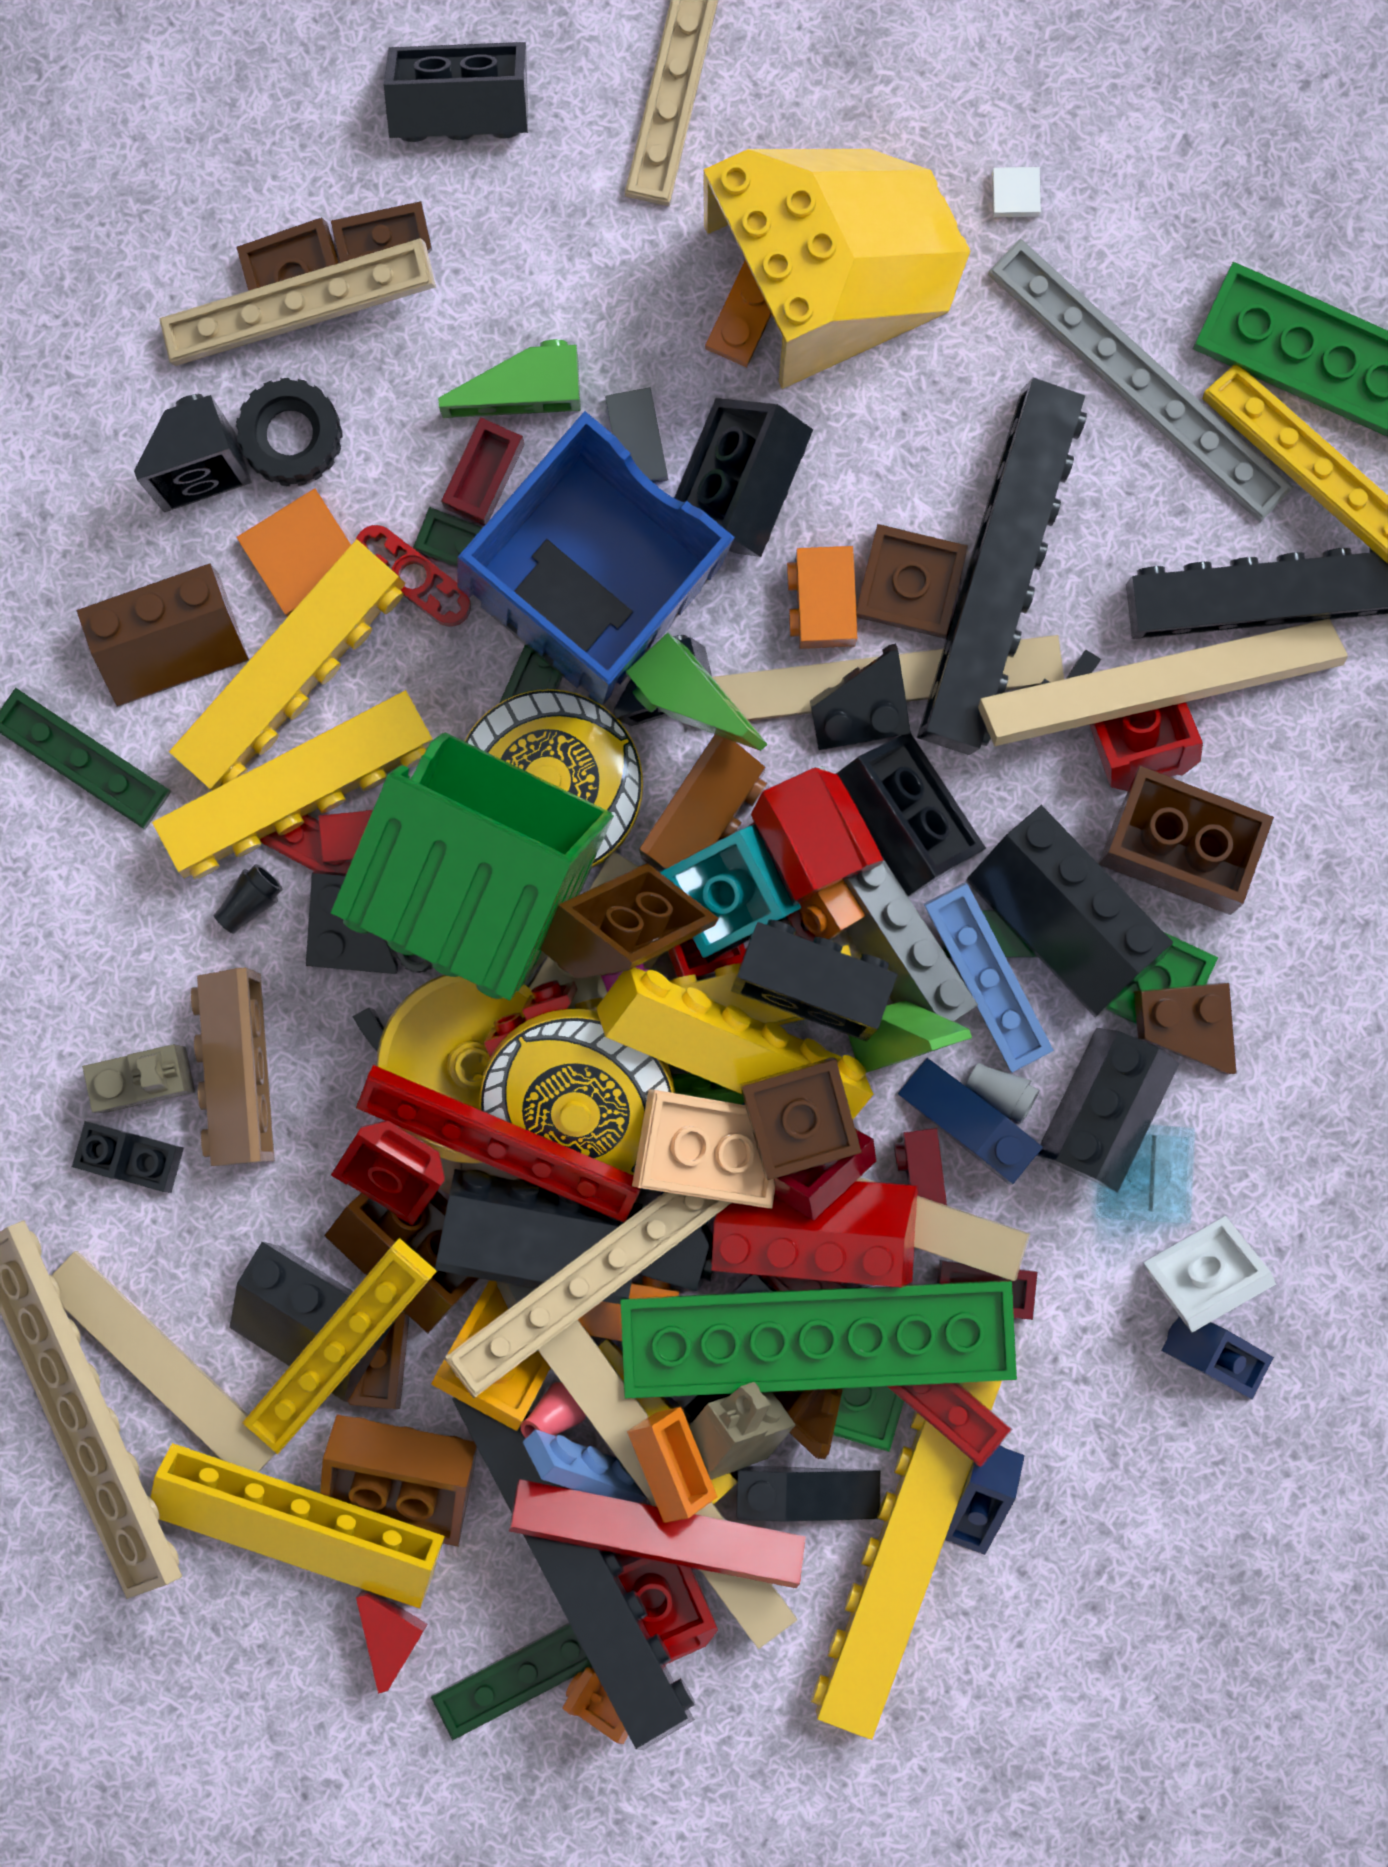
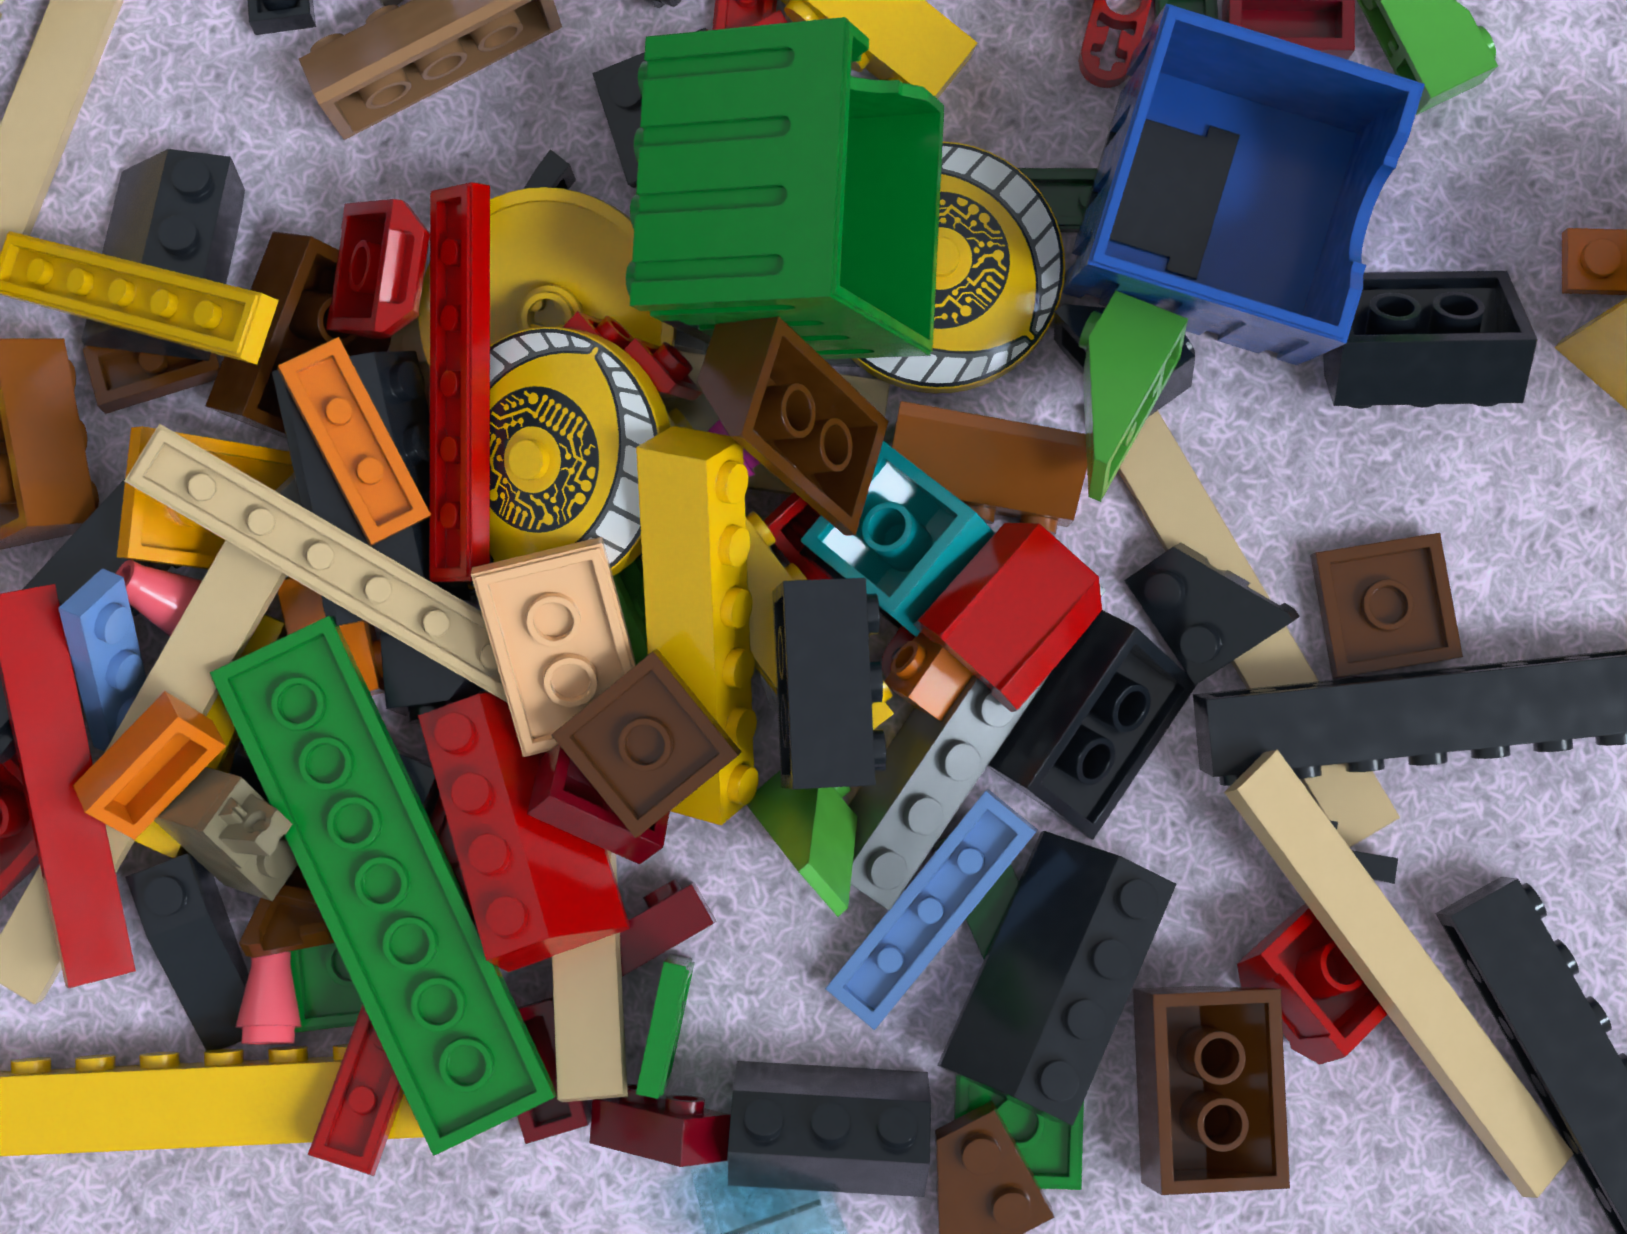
camera: 65 degrees right, 0 degrees up
(509, 1232) = (354, 441): none -> orange plate
(636, 427) = (1421, 193): dark grey tile -> none
(824, 597) = (1317, 506): orange brick -> none
(863, 1458) = (269, 1002): none -> coral cone
(970, 1121) = (742, 962): dark blue slope -> none
(986, 1500) = (280, 1179): dark blue slope -> none
(993, 1189) = (665, 1026): none -> green tile
(1005, 1092) = (797, 990): light grey cone -> none
(1063, 1218) = (661, 1129): none -> dark red piece

